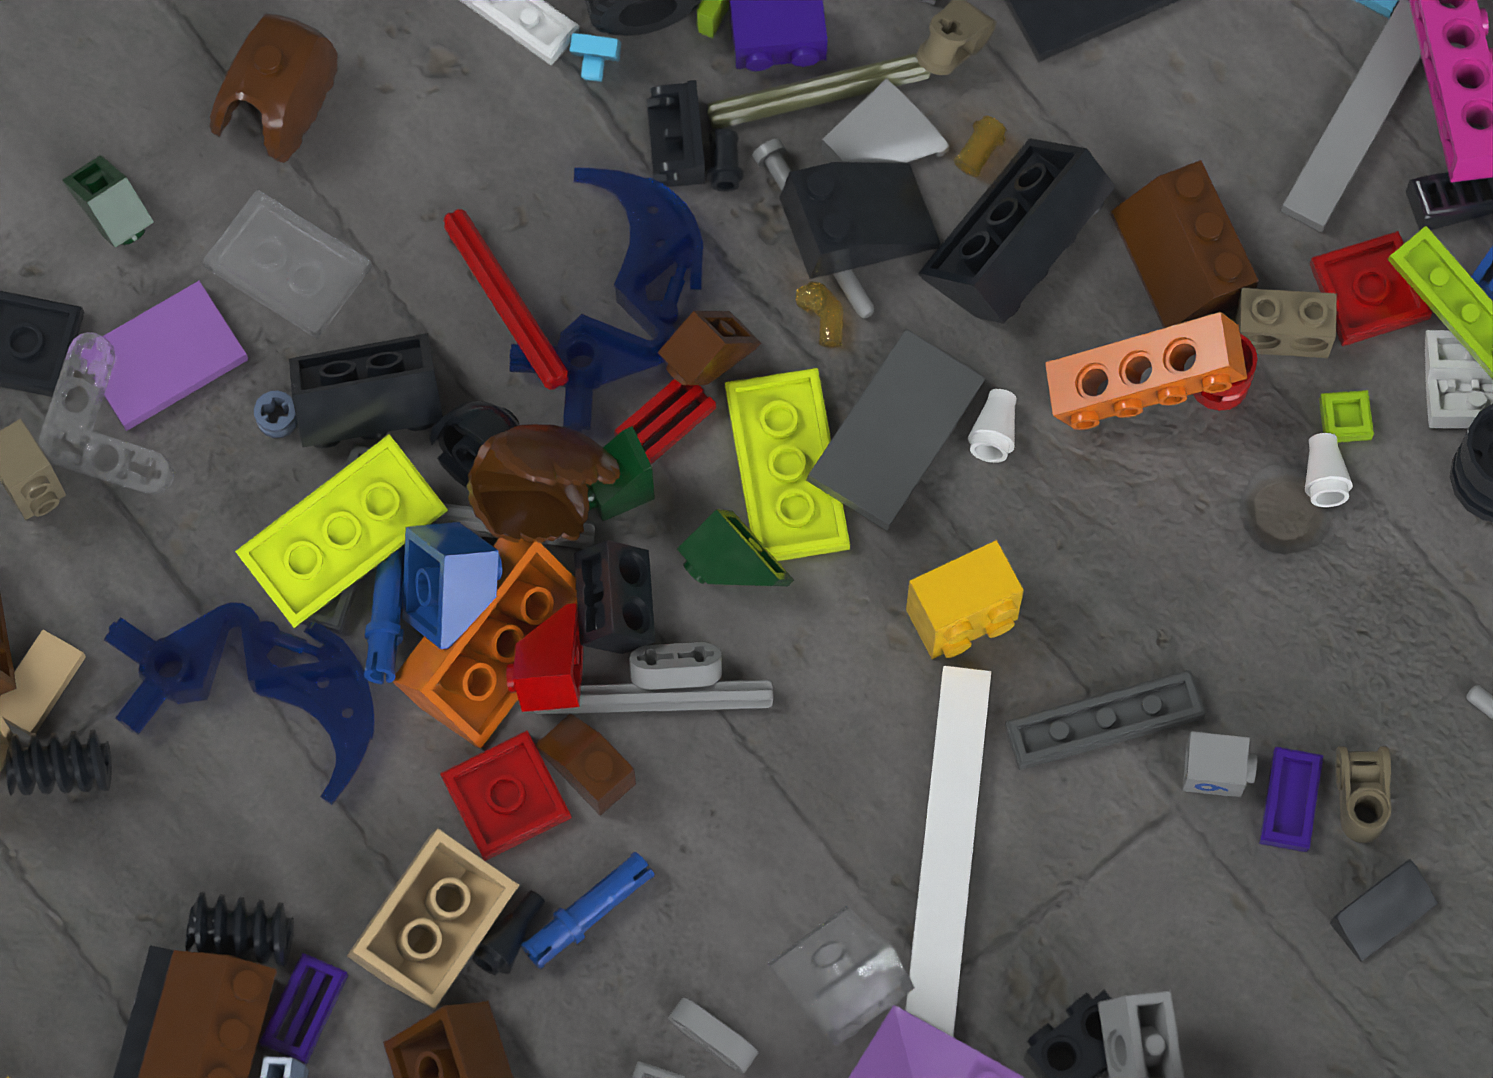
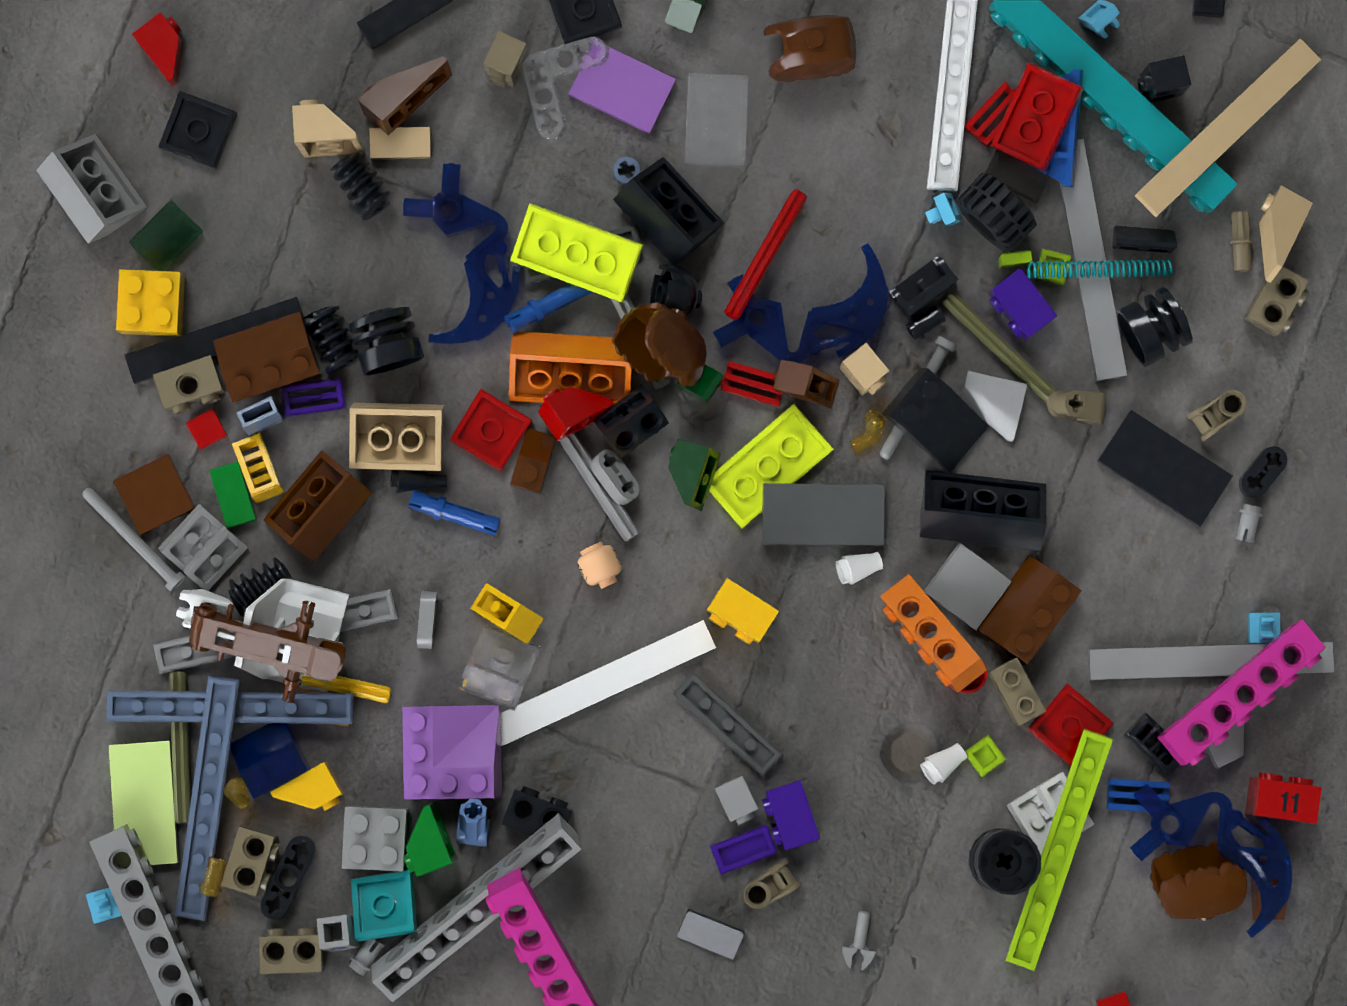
camera: 55 degrees right, 15 degrees up
(282, 849) = (386, 340): none -> black wheel
(447, 580) = (582, 328): blue slope -> none
(740, 260) = (865, 370): none -> tan brick
(771, 919) = (506, 613): none -> yellow slope
(783, 757) = (599, 565): none -> light nougat head
(980, 146) = (1022, 459): clear yellow pin -> none
(1104, 301) = (967, 586): none -> light grey slope
(1282, 705) = (791, 815): none -> dark purple brick

